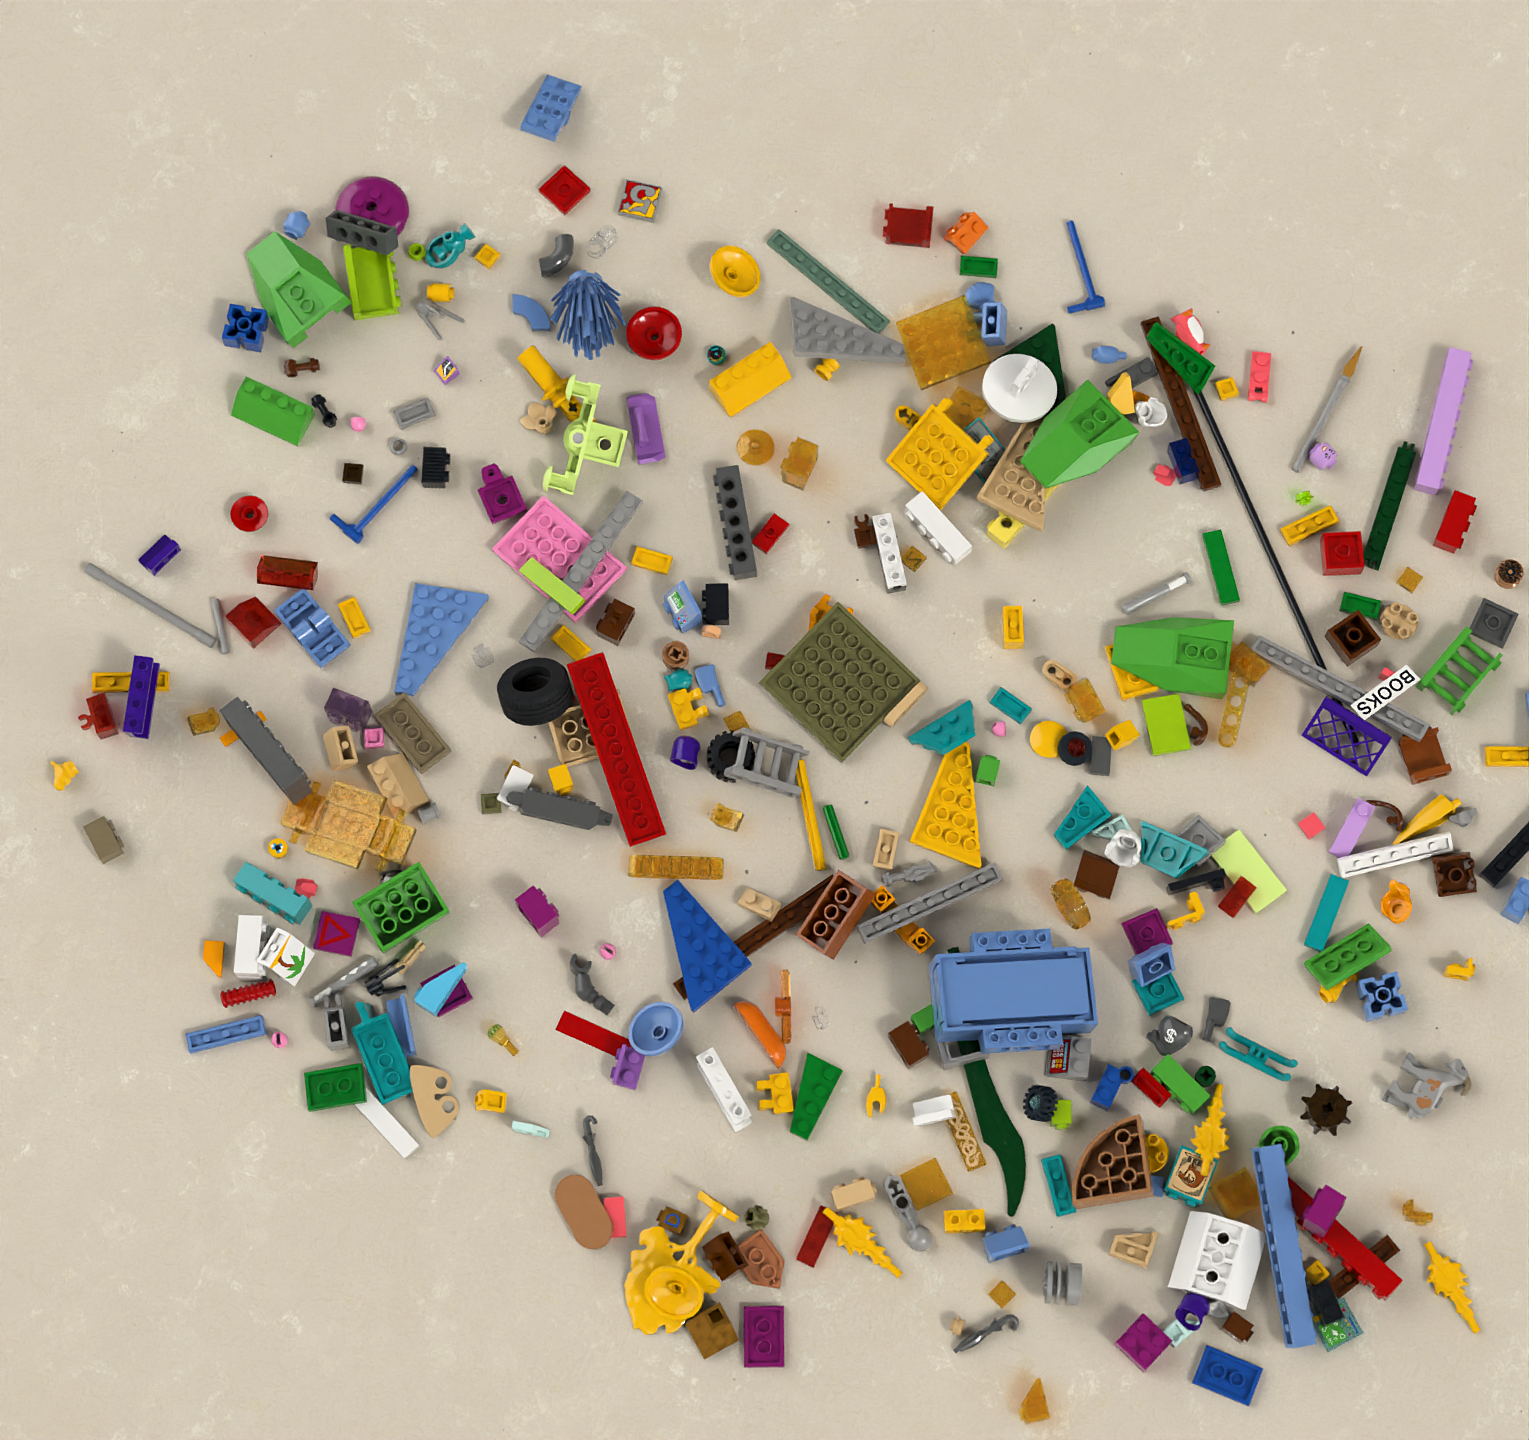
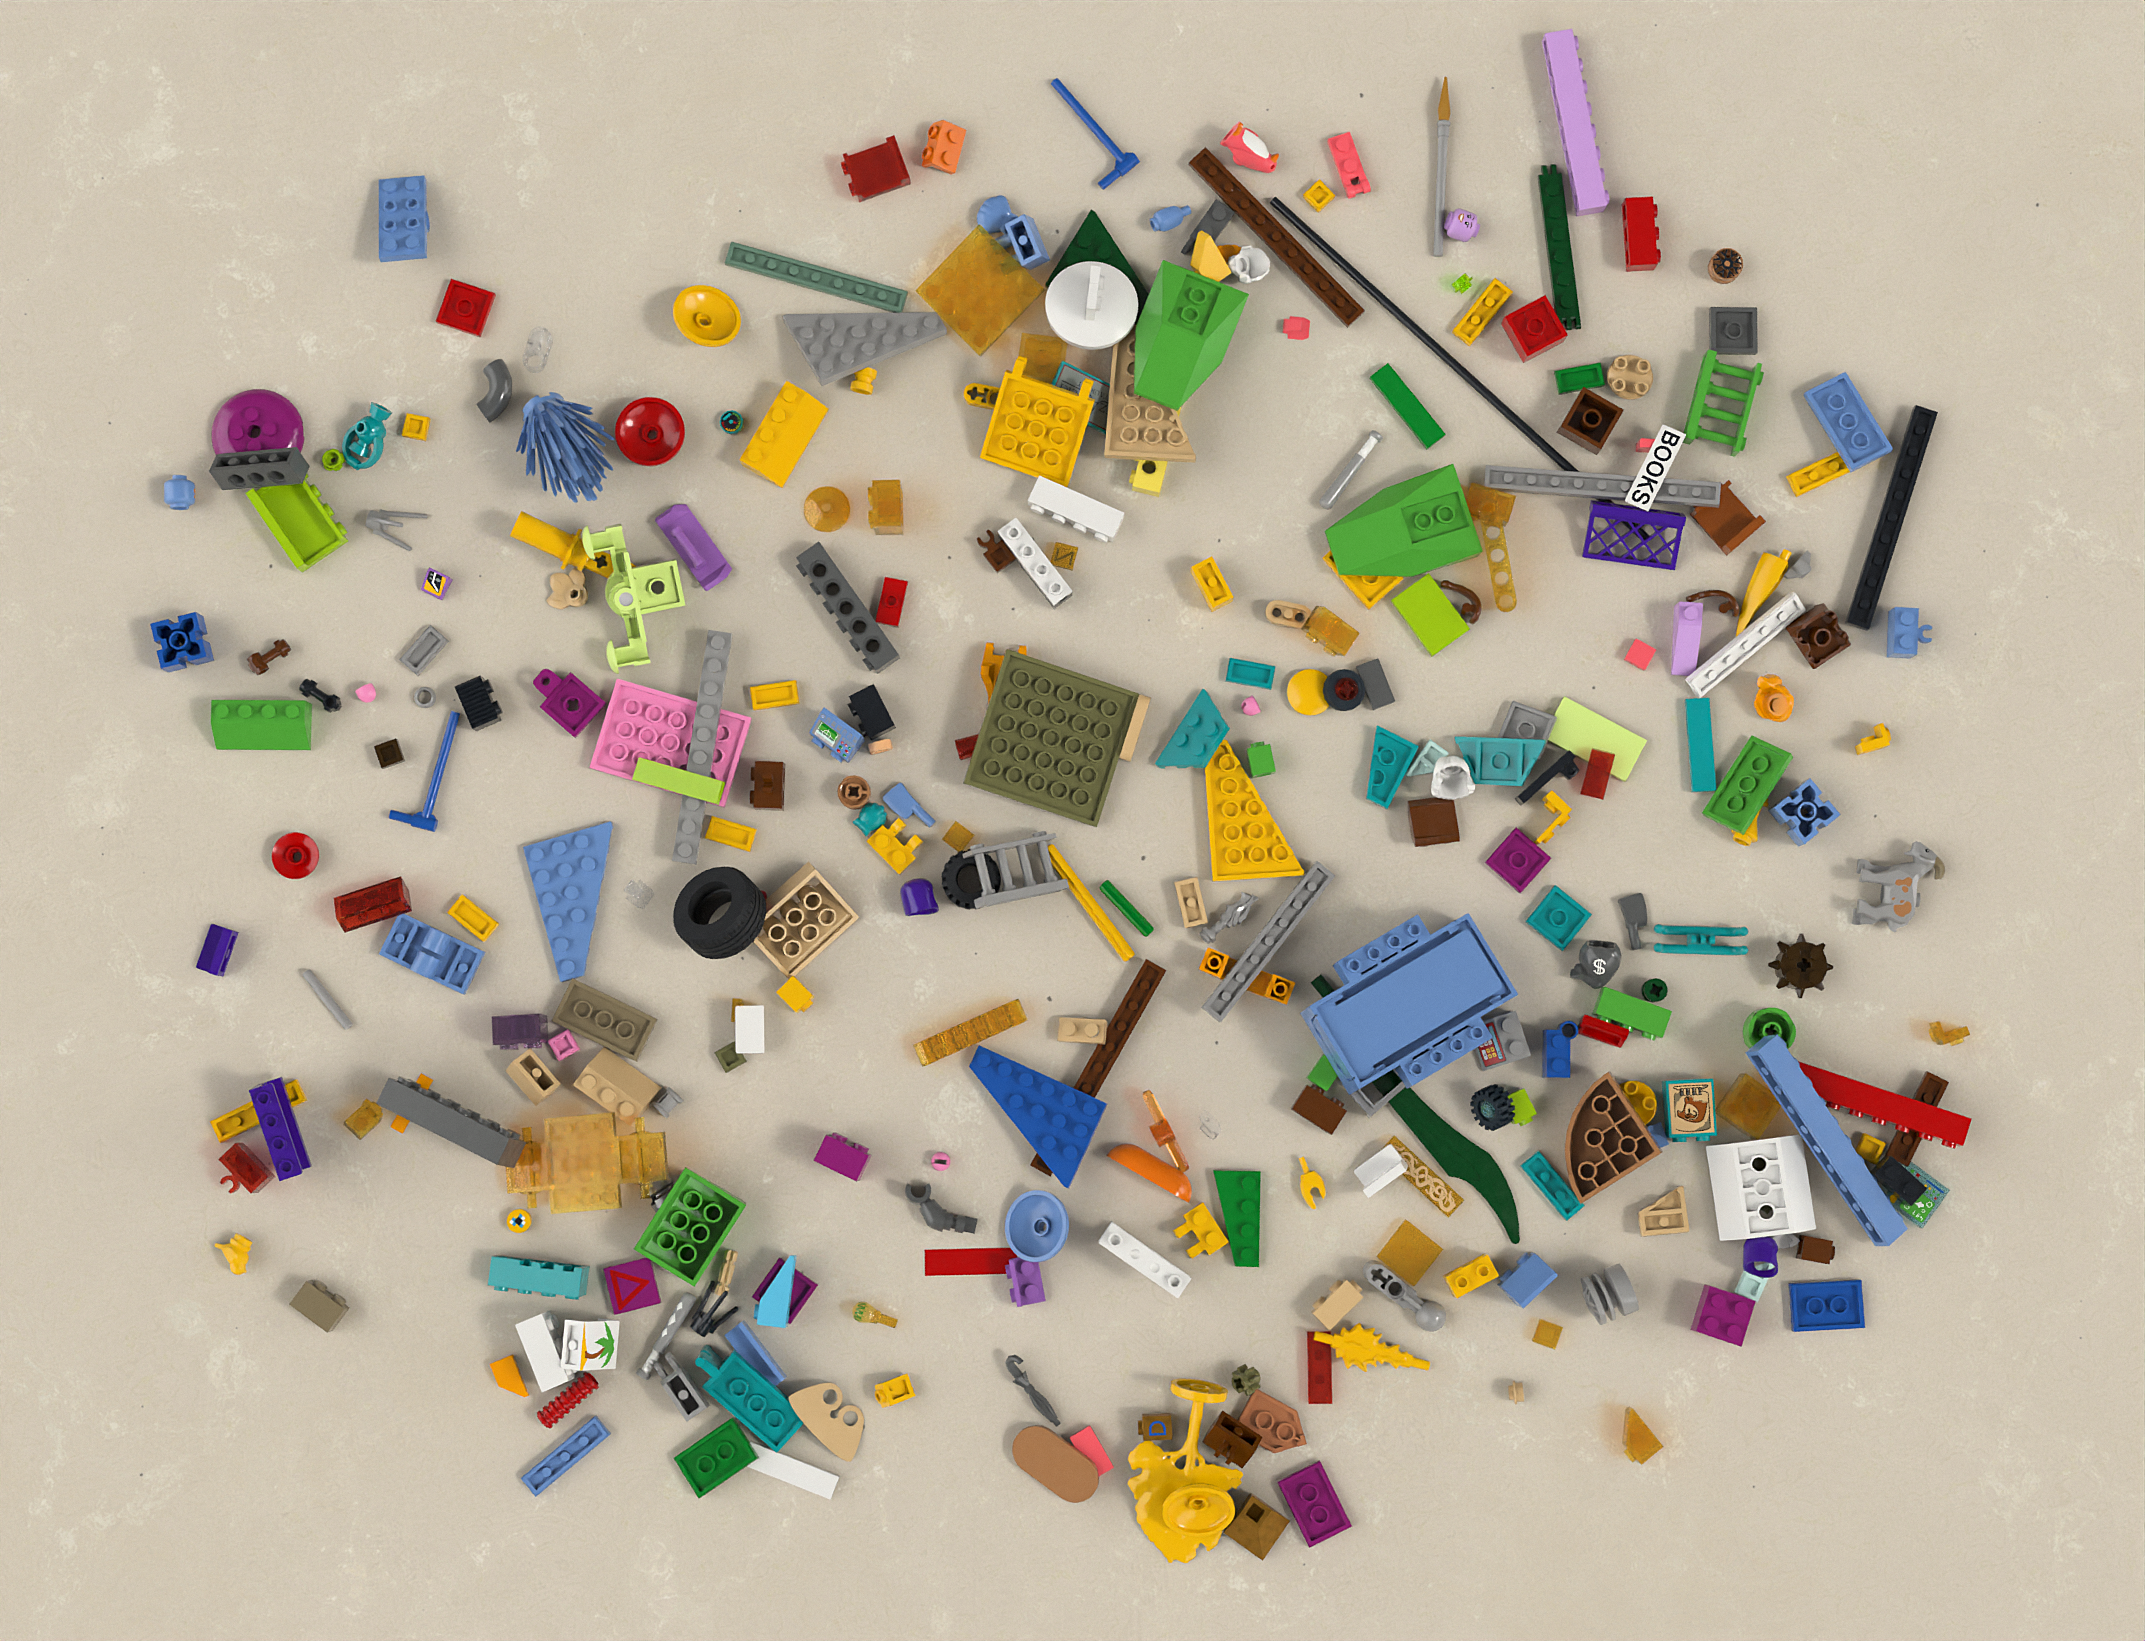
camera: 25 degrees left, 10 degrees up
(200, 635) = (162, 1005): light grey piece -> none
(252, 621) = (361, 976): clear red slope -> none
(283, 1038) = (632, 1431): bright pink hinge -> none
(293, 286) = (213, 568): bright green wedge -> none
(306, 887) = (571, 1250): coral piece -> none
(440, 292) = (384, 495): yellow brick -> none
(530, 1129) = (952, 1401): light aqua tile -> none
(532, 312) = (498, 468): medium blue tile -> none
(558, 809) = (812, 1031): dark grey hinge -> none
(616, 749) = (841, 934): red plate -> none
(640, 201) = (557, 281): tile -> none
(726, 817) = (999, 950): clear yellow bracket -> none
(835, 914) = (1173, 1005): dark orange brick -> none
(978, 266) = (976, 181): green tile -> none
(978, 1336) = (1542, 1394): dark grey piece -> none
(1070, 903) = (1422, 869): clear yellow gear -> none
(1122, 735) = (1389, 650): yellow brick -> none
(1152, 964) = (1541, 894): medium blue slope -> none
(1184, 467) = (1314, 310): clear blue brick -> none
(1185, 360) = (1260, 185): green wing -> none
(1210, 1137) = (1692, 1056): yellow piece -> none
(1324, 1210) = (1856, 1085): magenta brick -> none
(1409, 580) = (1619, 323): clear yellow tile -> none
(1449, 1280) = (2013, 1088): yellow piece -> none

